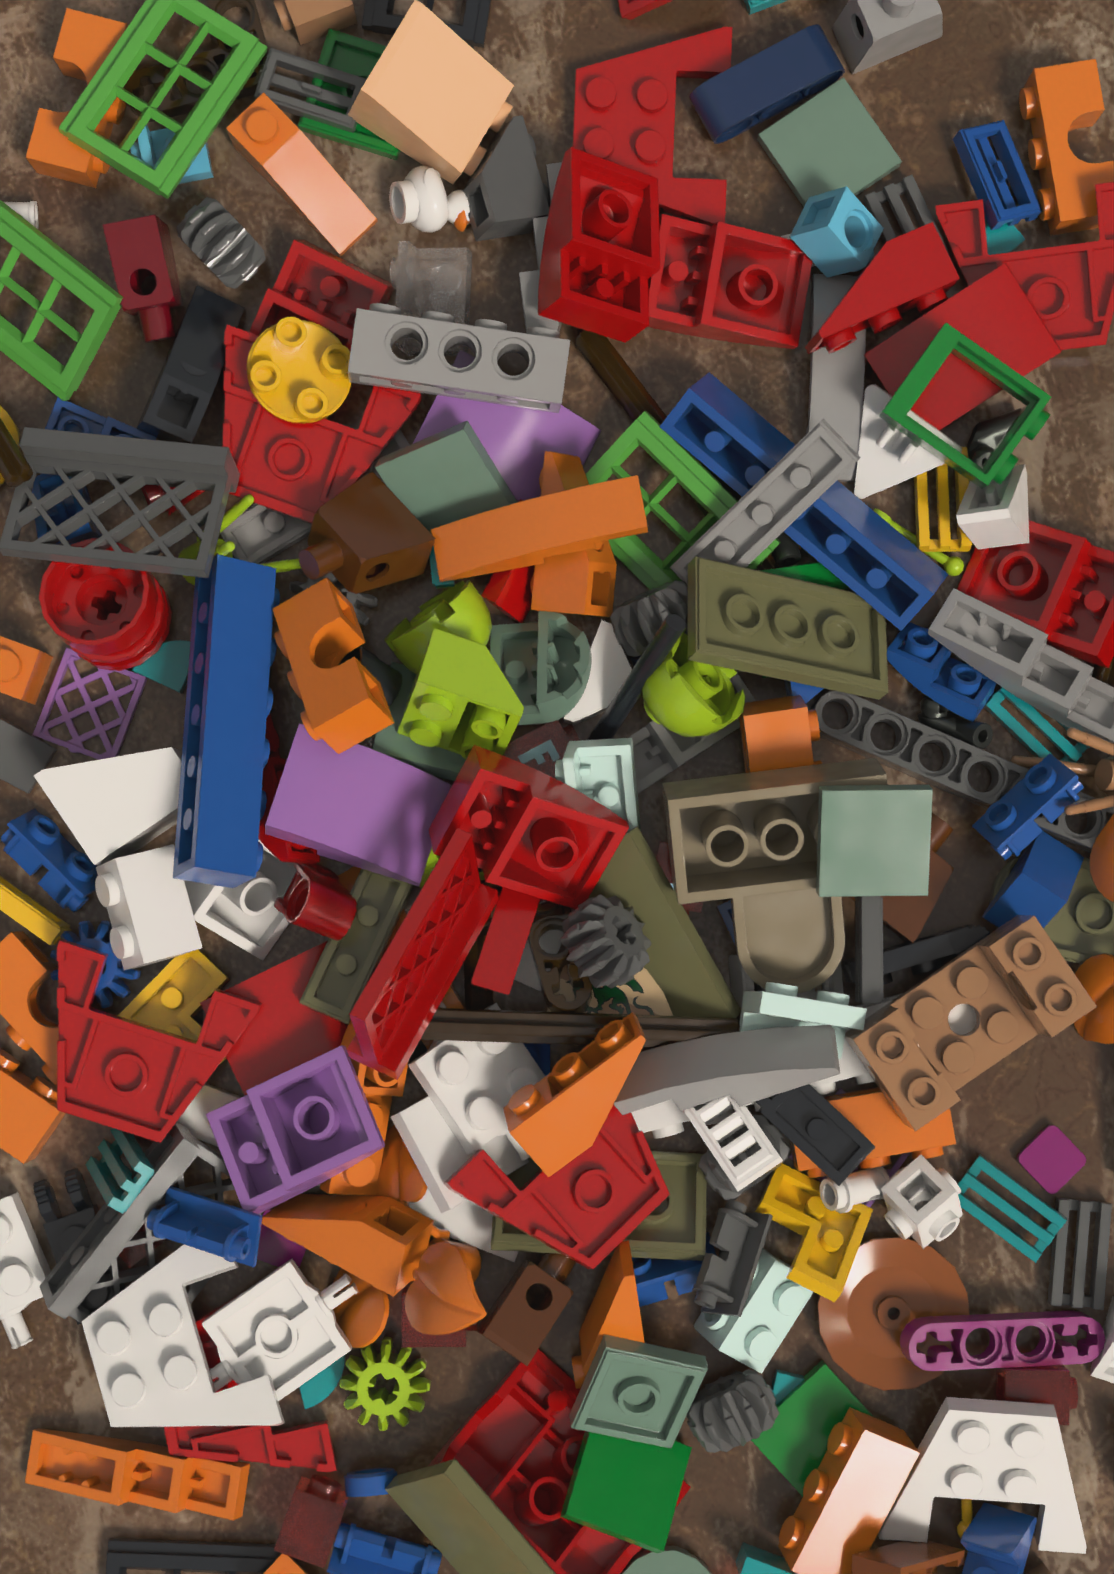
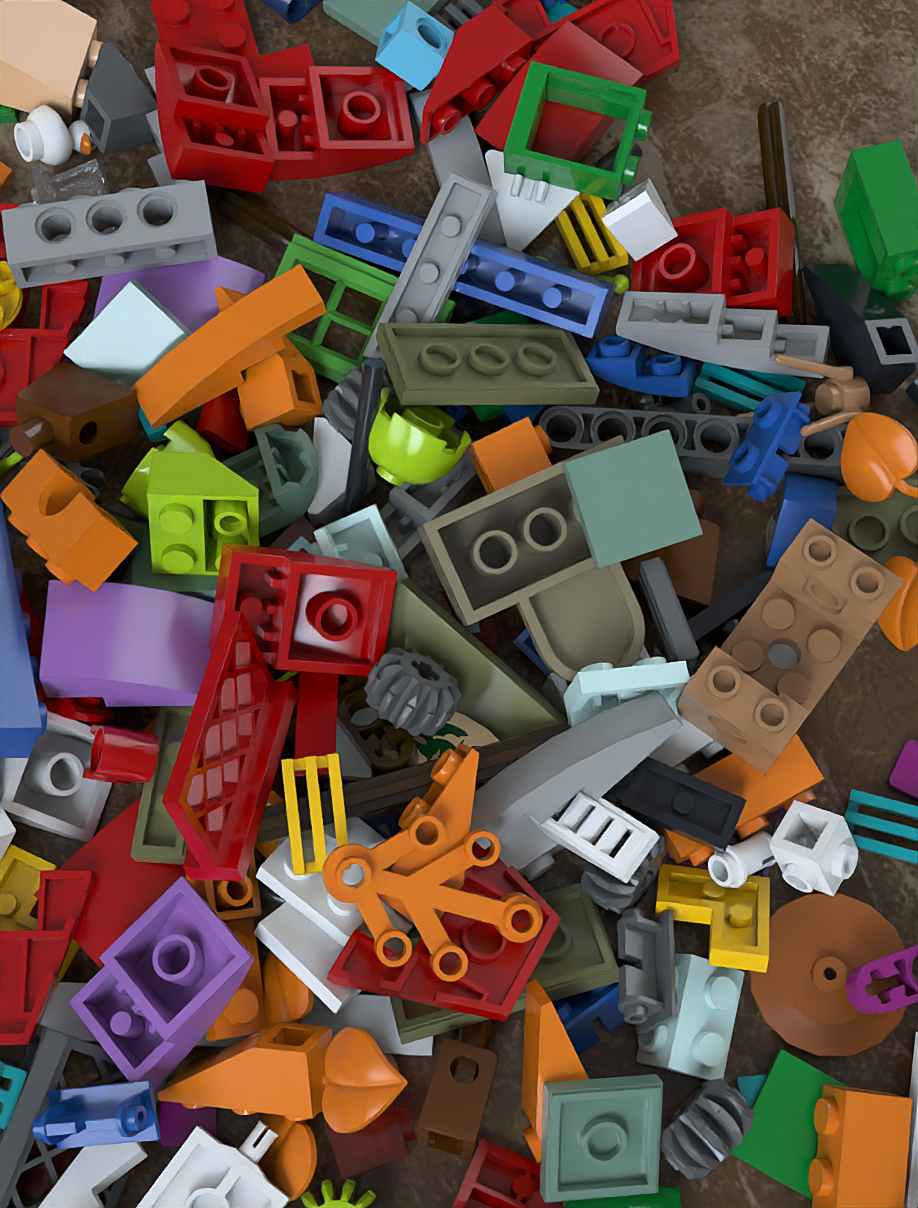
camera: 15 degrees left, 15 degrees down
(471, 1081) = (310, 765): none -> yellow tile
(556, 1143) = (422, 892): none -> orange plant

